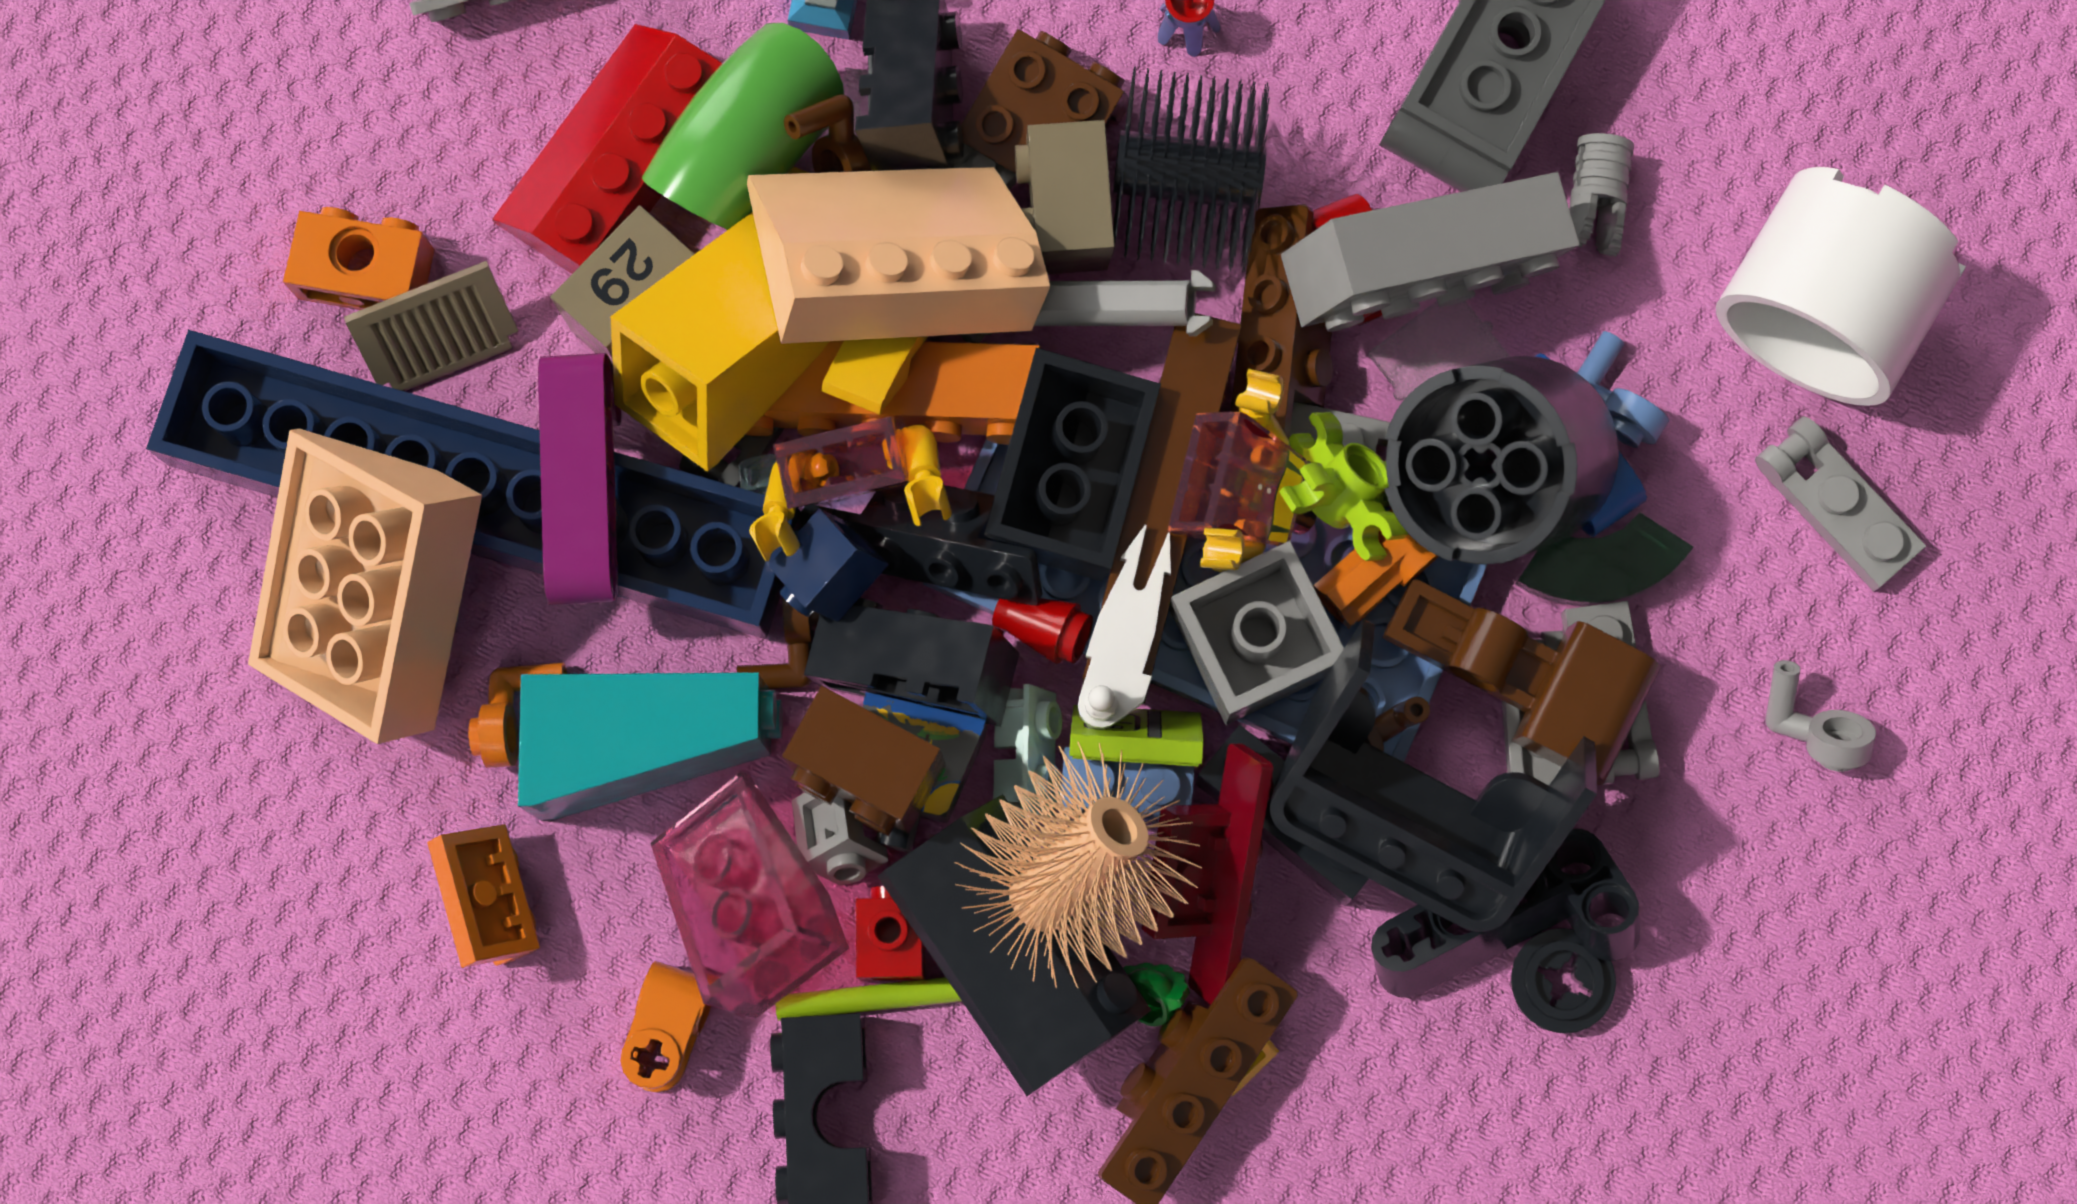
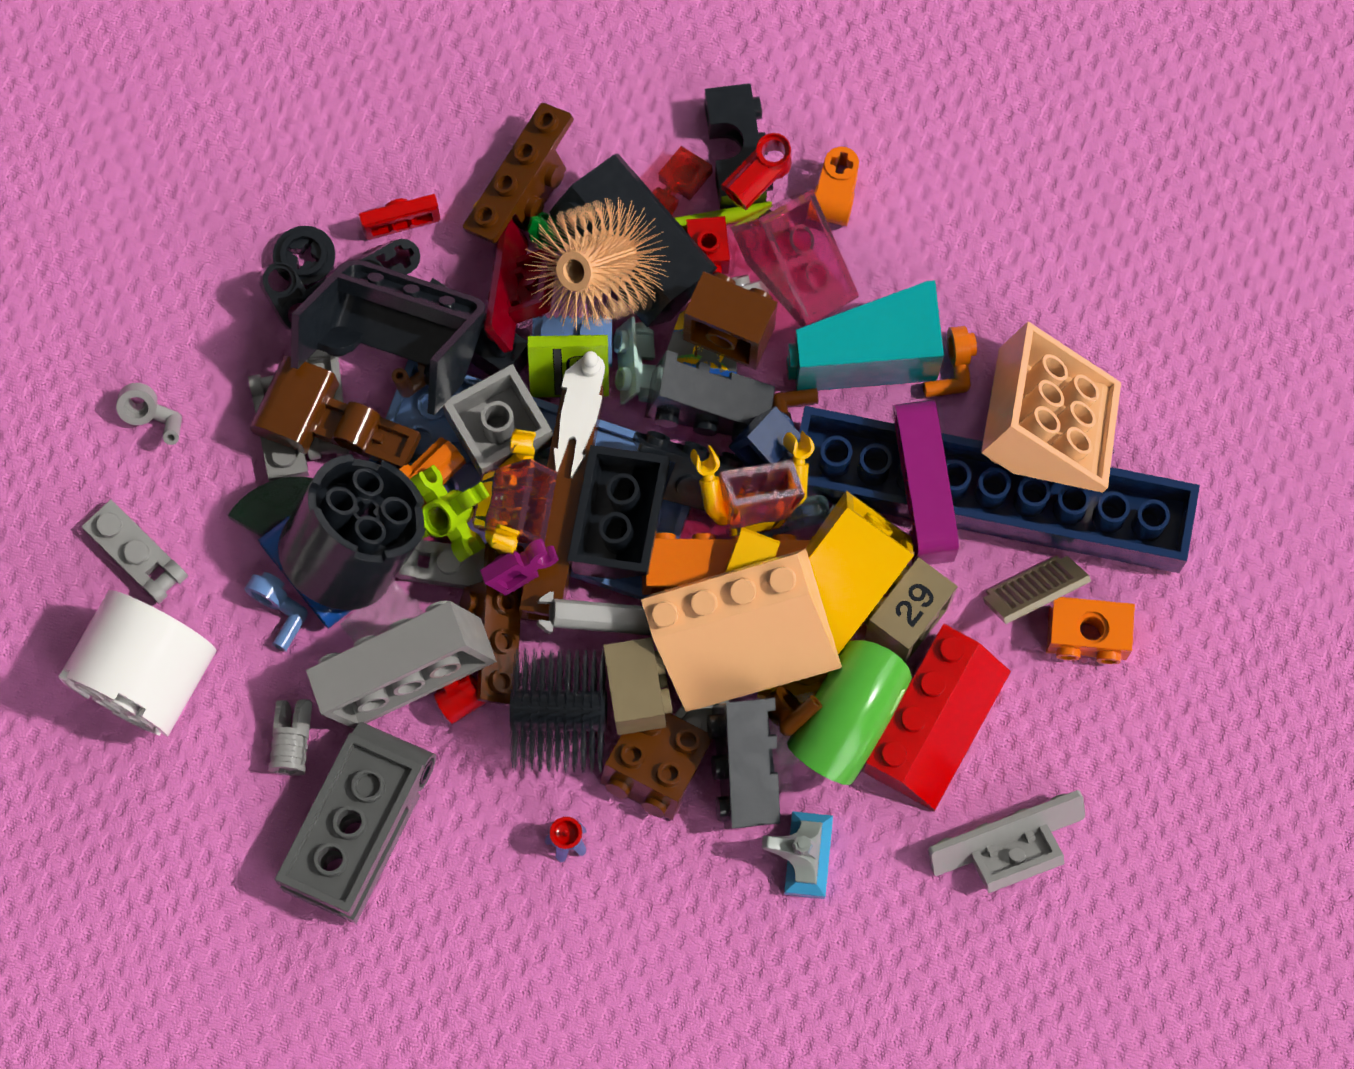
camera: 170 degrees right, 5 degrees down
(483, 896) = (952, 247): orange bracket -> none
(796, 1033) = (756, 172): none -> red piece
(917, 1072) = (681, 175): none -> clear red plate
(1049, 627) = (623, 422): red cone -> none
(1233, 374) = (513, 571): none -> magenta plate
(1403, 1035) = (400, 216): none -> red plate

